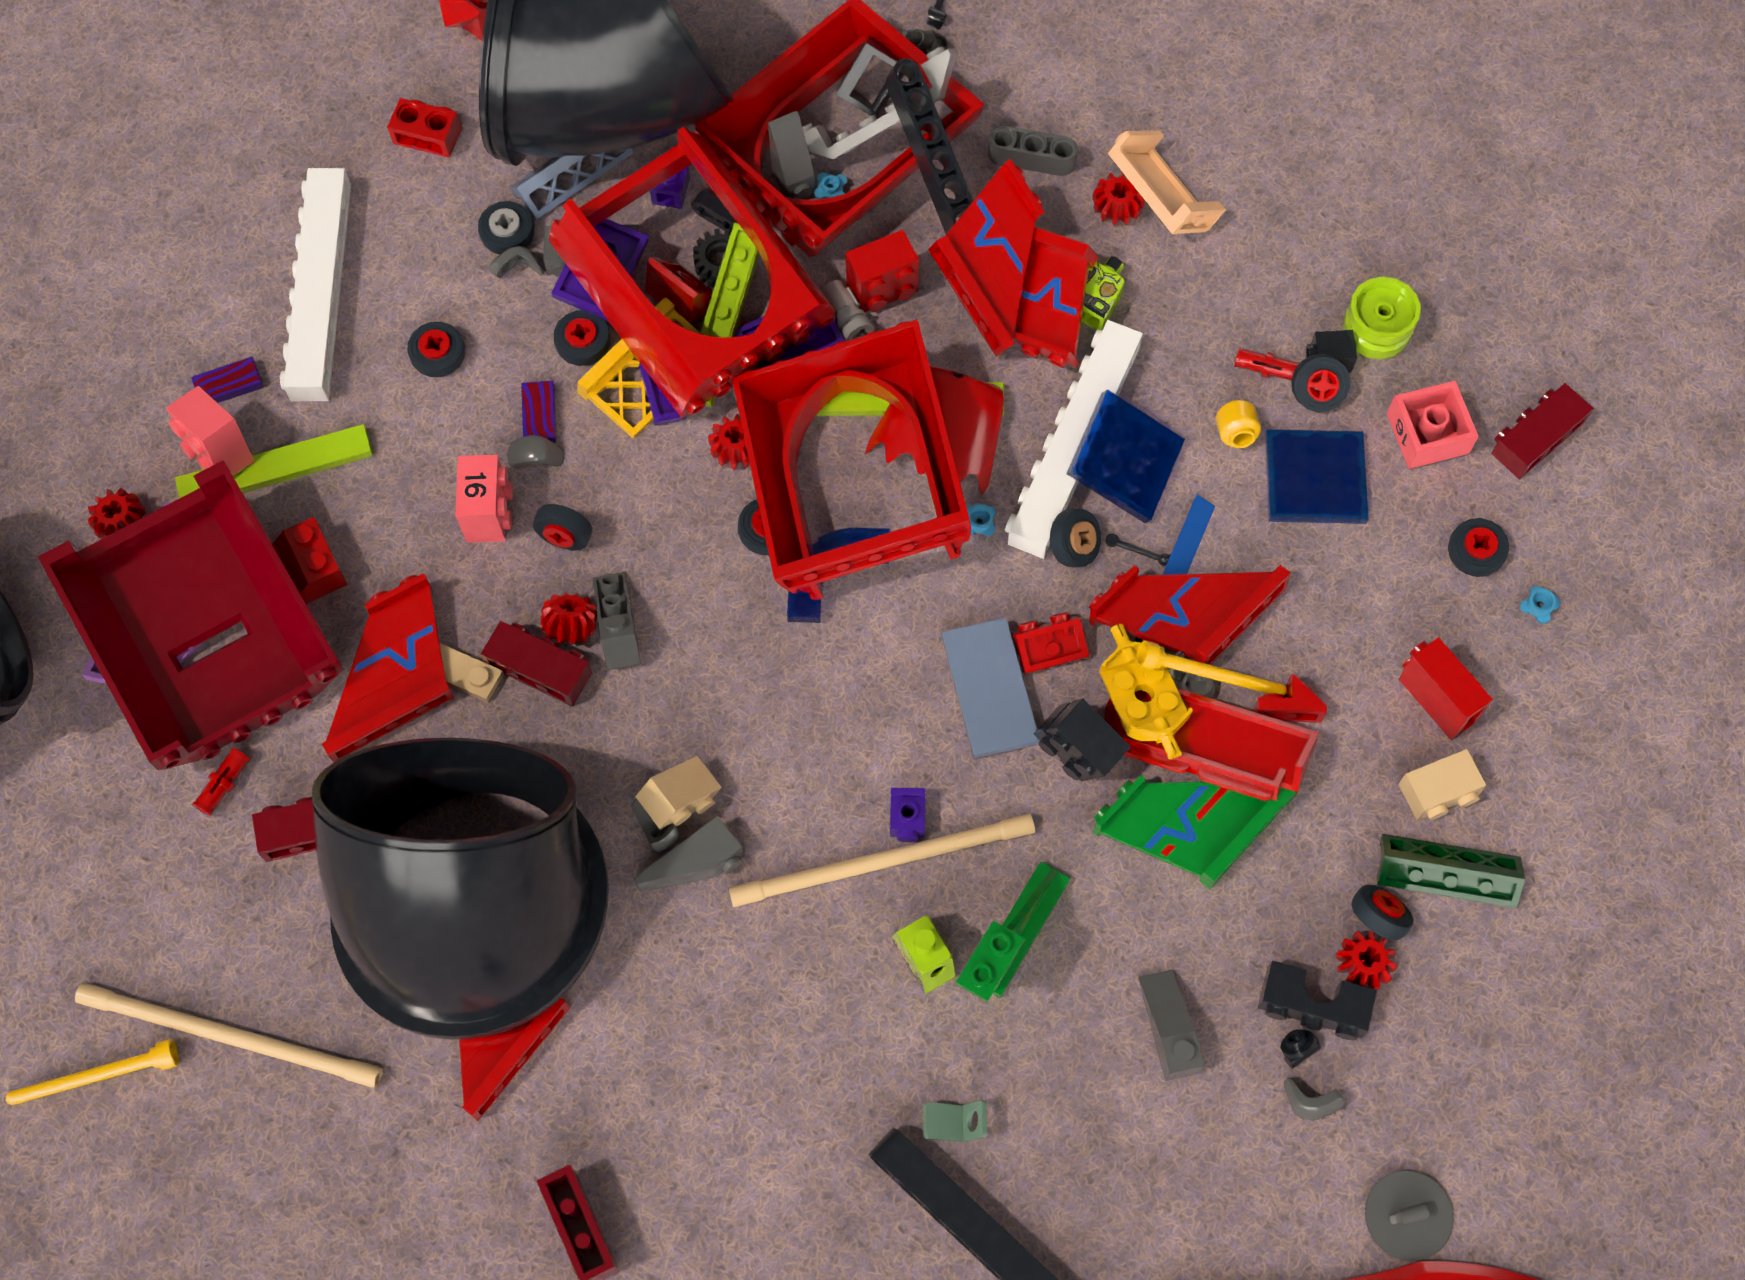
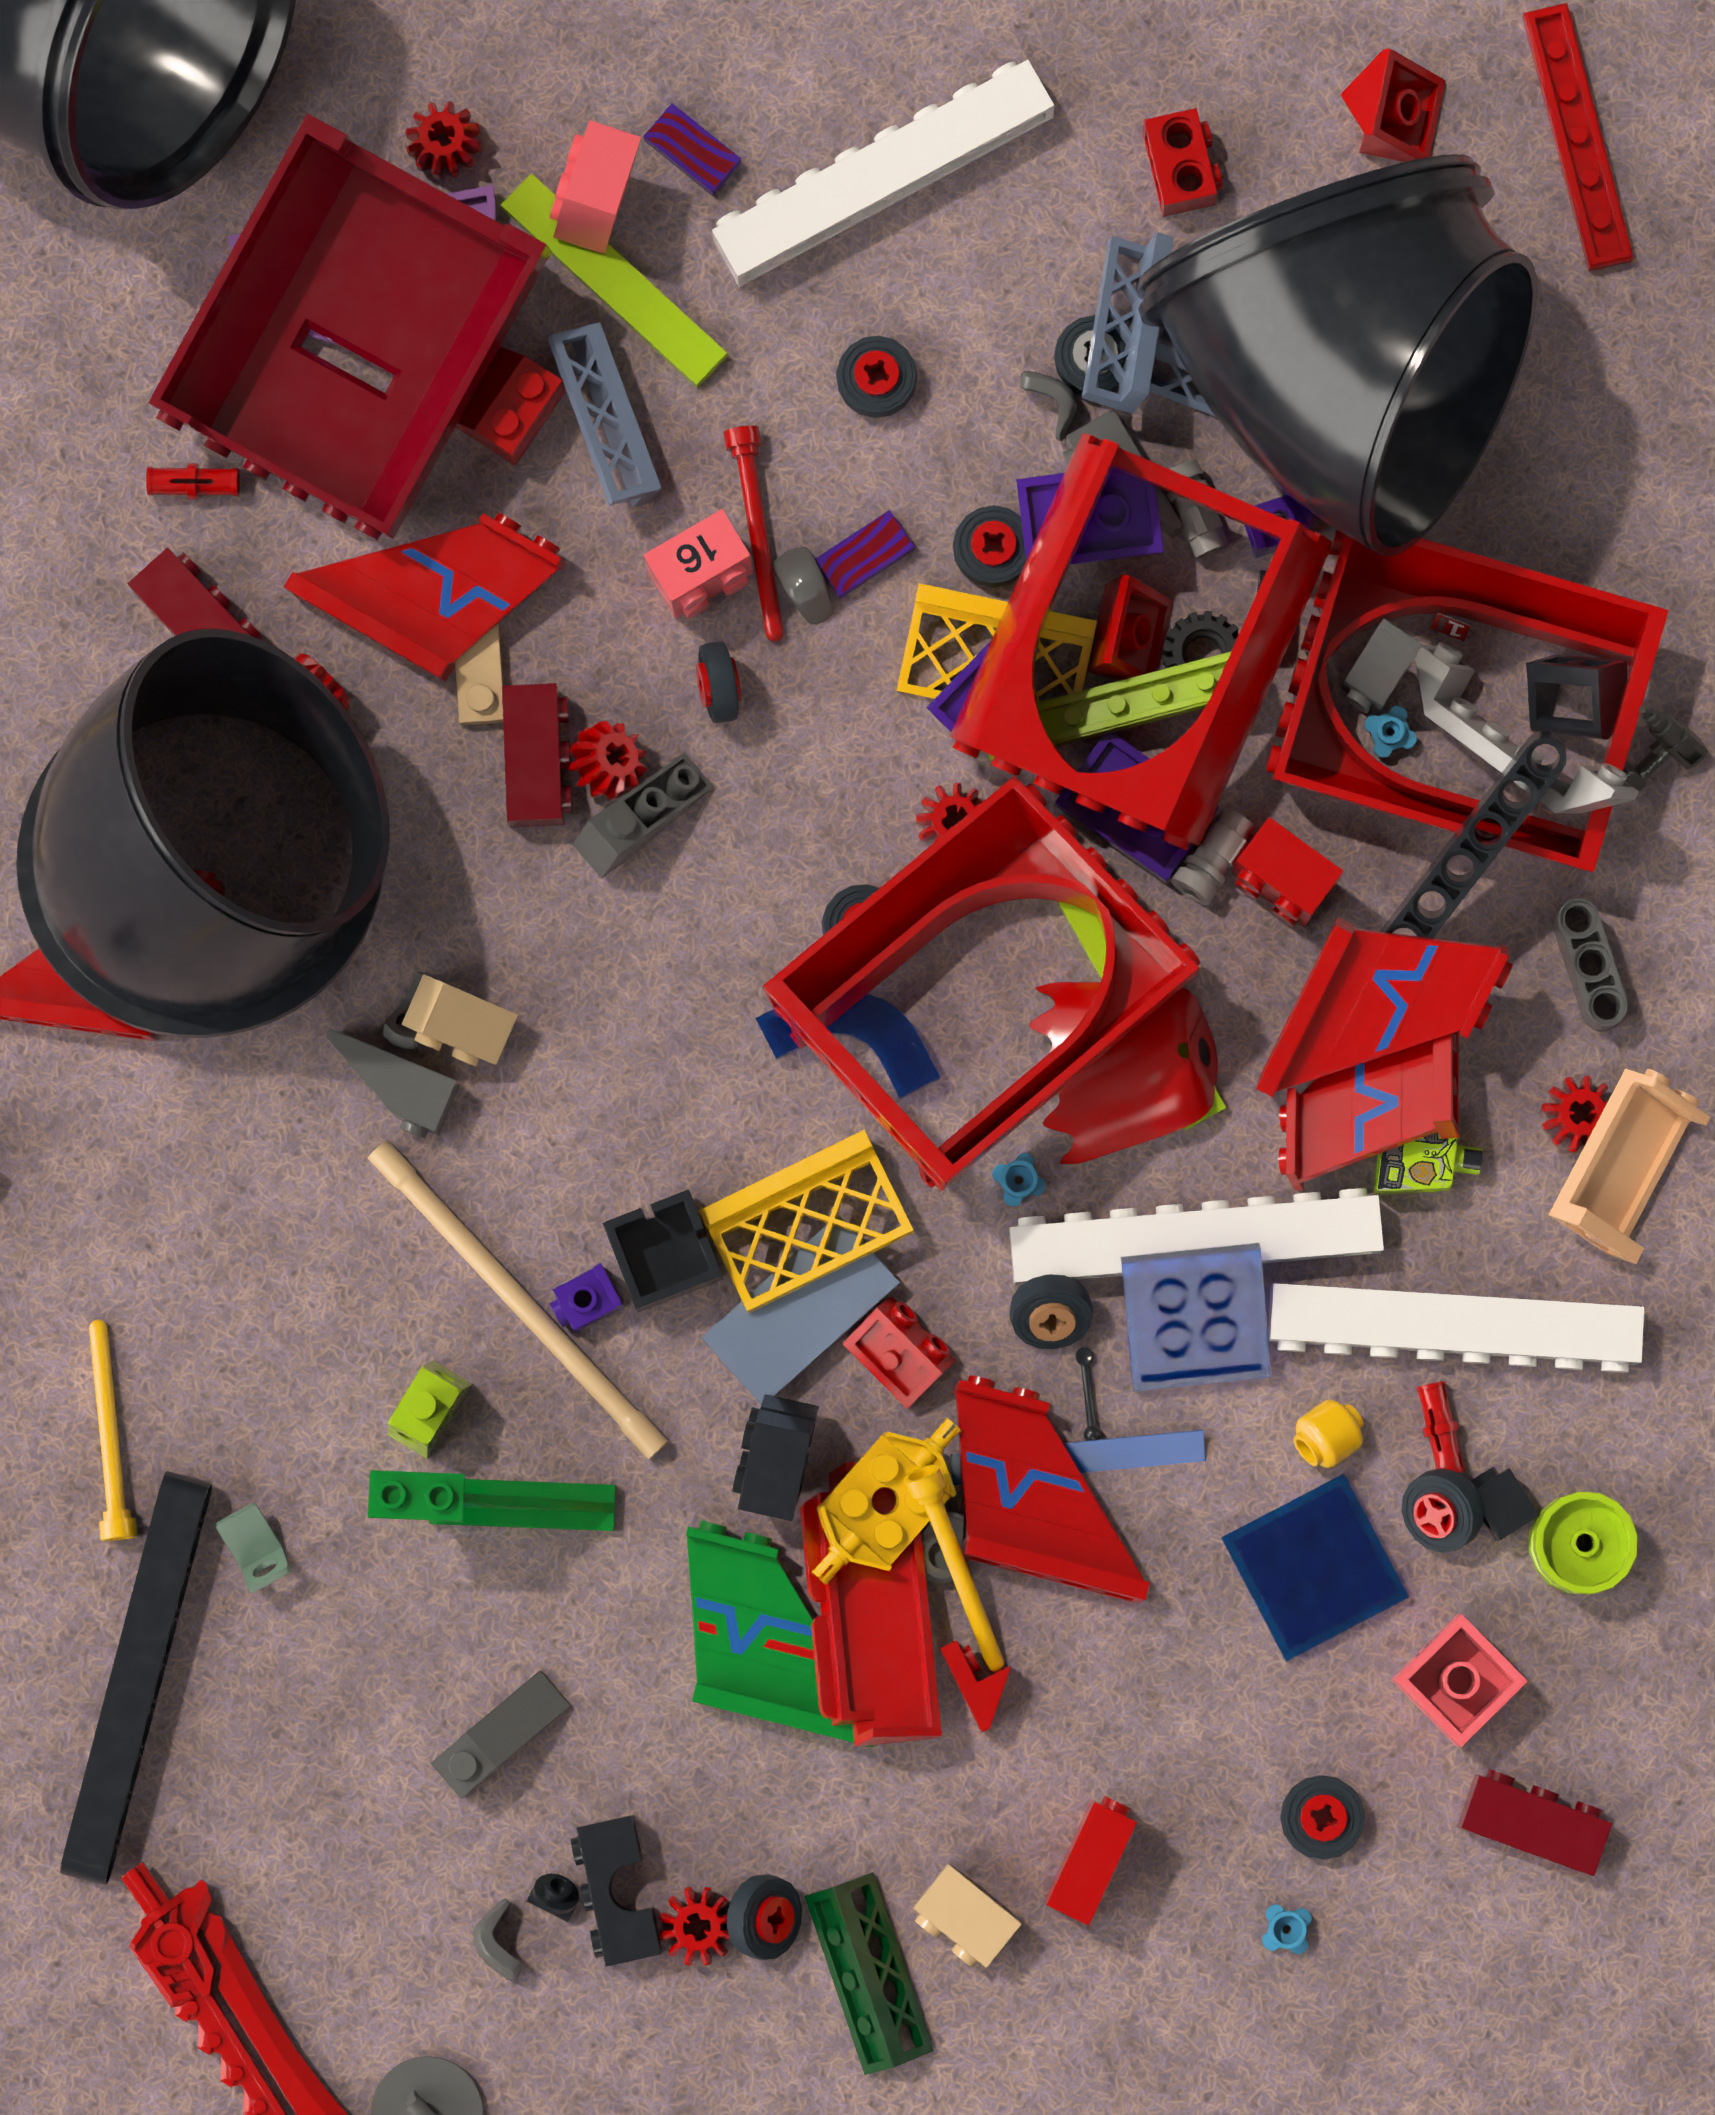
camera: 65 degrees right, 15 degrees up
(353, 505) = (611, 409): none -> sand blue fence
(425, 443) = (744, 445): none -> red piece
(506, 189) = (1140, 339): none -> sand blue fence
(649, 221) = (1200, 525): none -> light grey axle
(882, 1208) = (117, 1519): none -> yellow piece
(904, 752) = (663, 1254): none -> black piece
(907, 646) = (789, 1185): none -> yellow fence
(1210, 321) = (1457, 1325): none -> white brick

